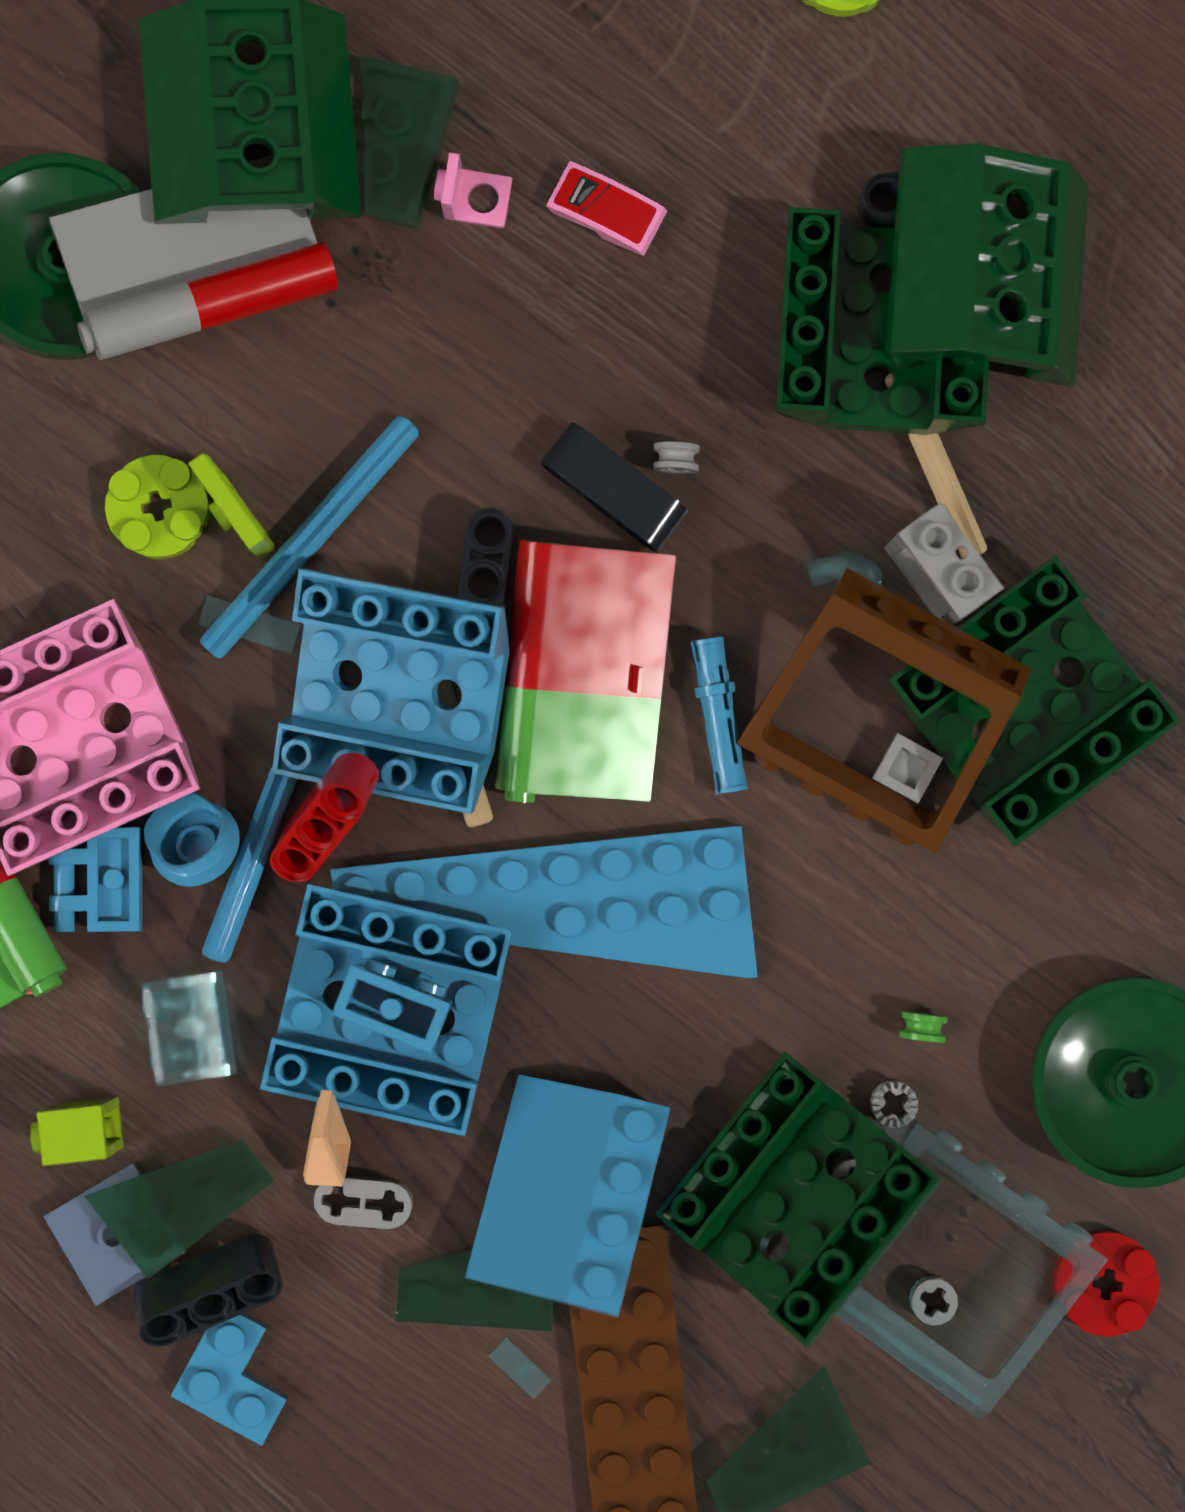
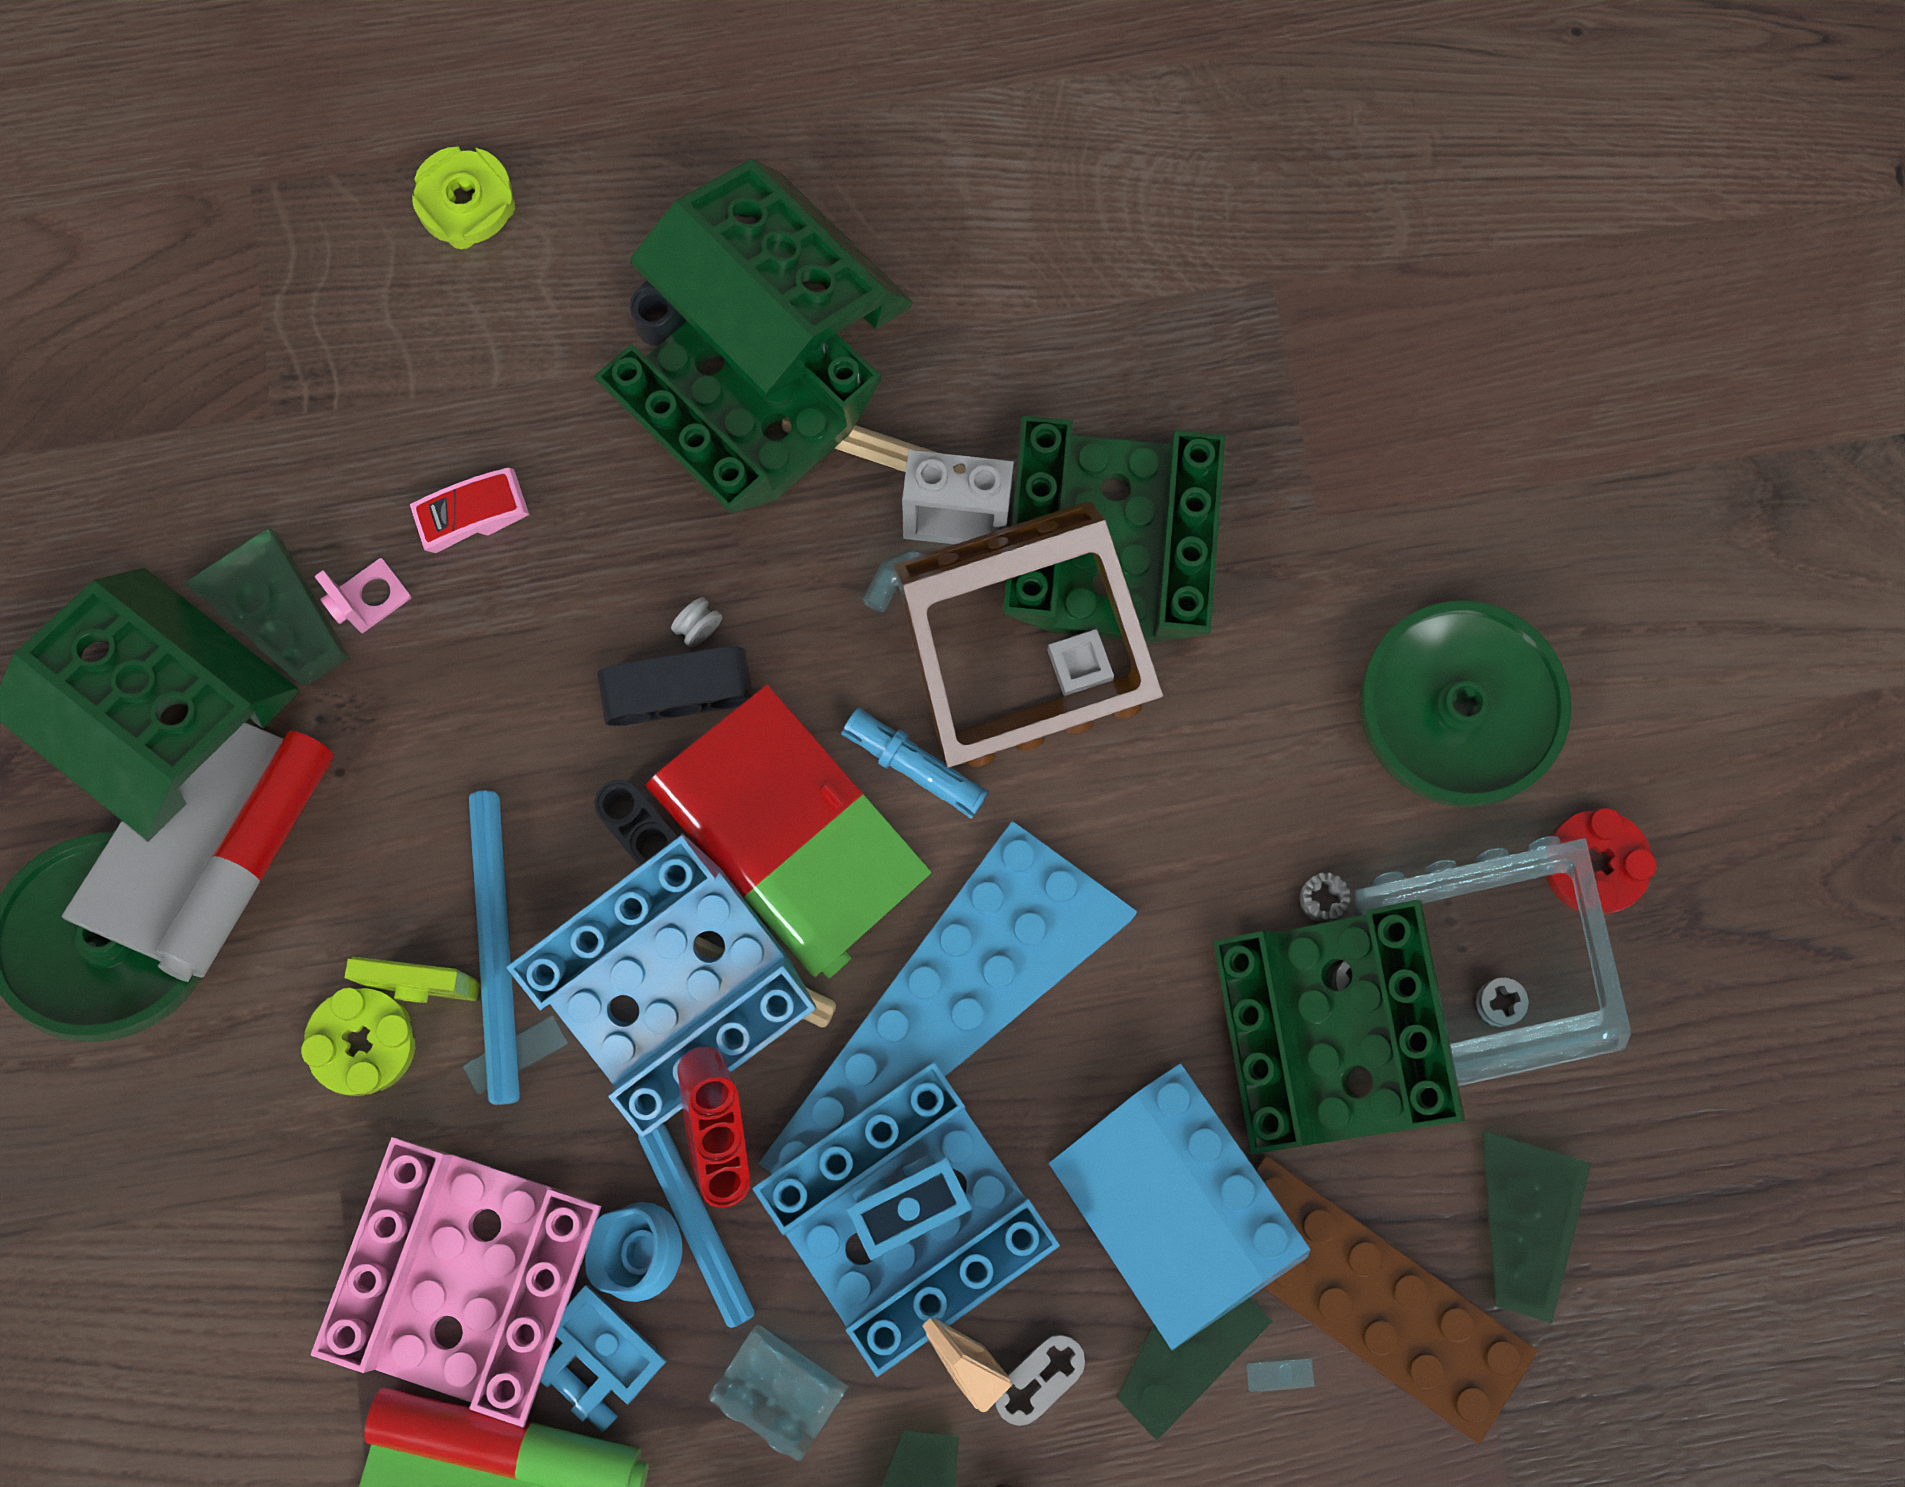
camera: 45 degrees left, 10 degrees down
(923, 1027) = (1285, 822): bright green bush -> none

